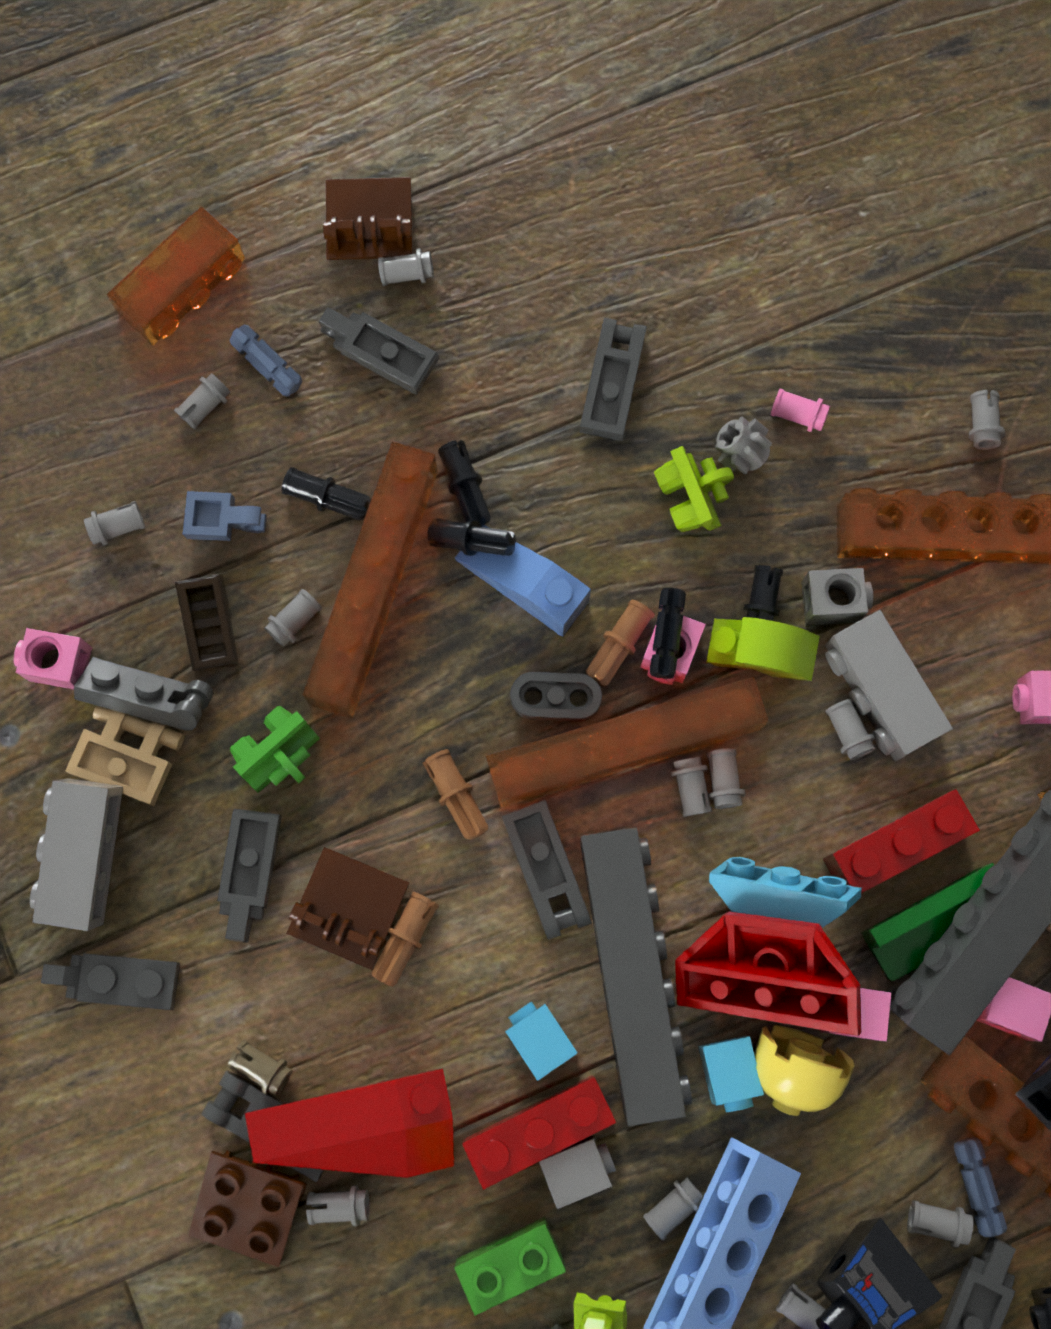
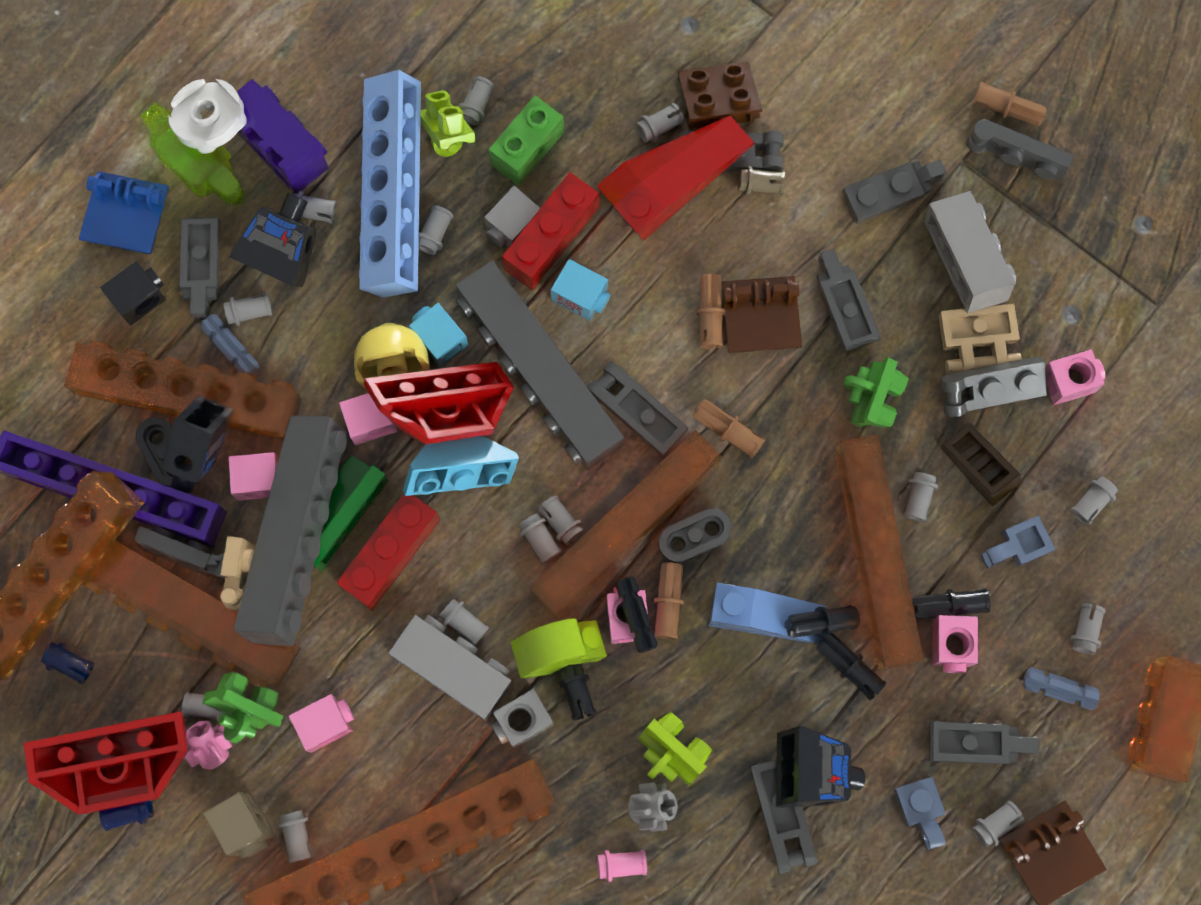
camera: 150 degrees right, 0 degrees up
(349, 470) = (966, 630): none -> bright pink brick
(471, 321) = (920, 806): none -> sand blue plate
(564, 393) = (814, 769): none -> black torso

